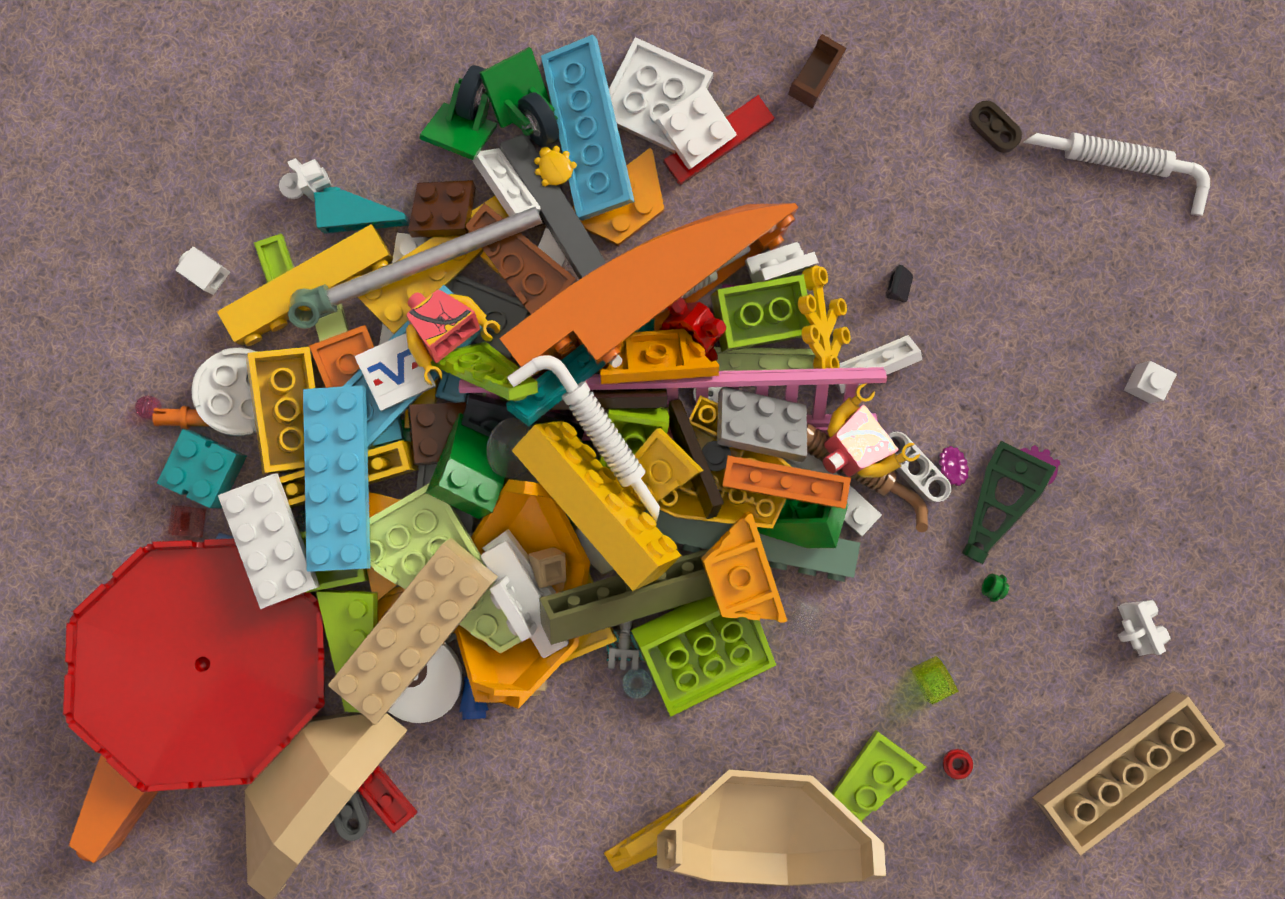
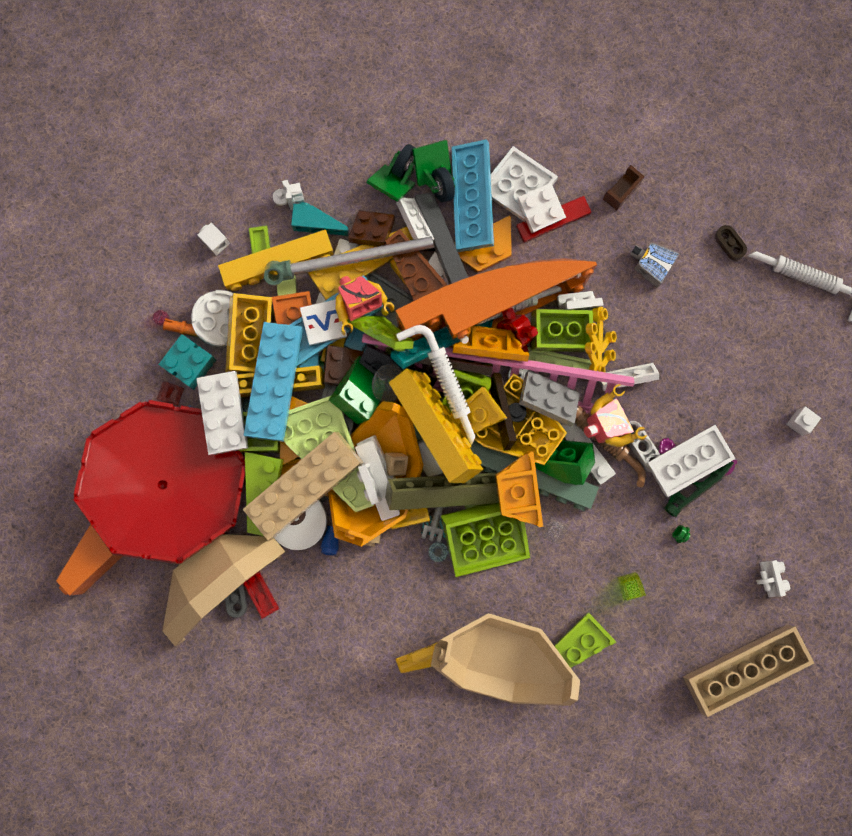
camera: 10 degrees right, 5 degrees down
(554, 166) = (447, 215): yellow piece -> none
(786, 482) = (558, 436): orange plate -> none
(884, 179) = (654, 262): none -> torso
(899, 284) = (653, 329): black slope -> none
(964, 770) = (643, 645): red plate -> none
(992, 477) = (690, 461): none -> white plate

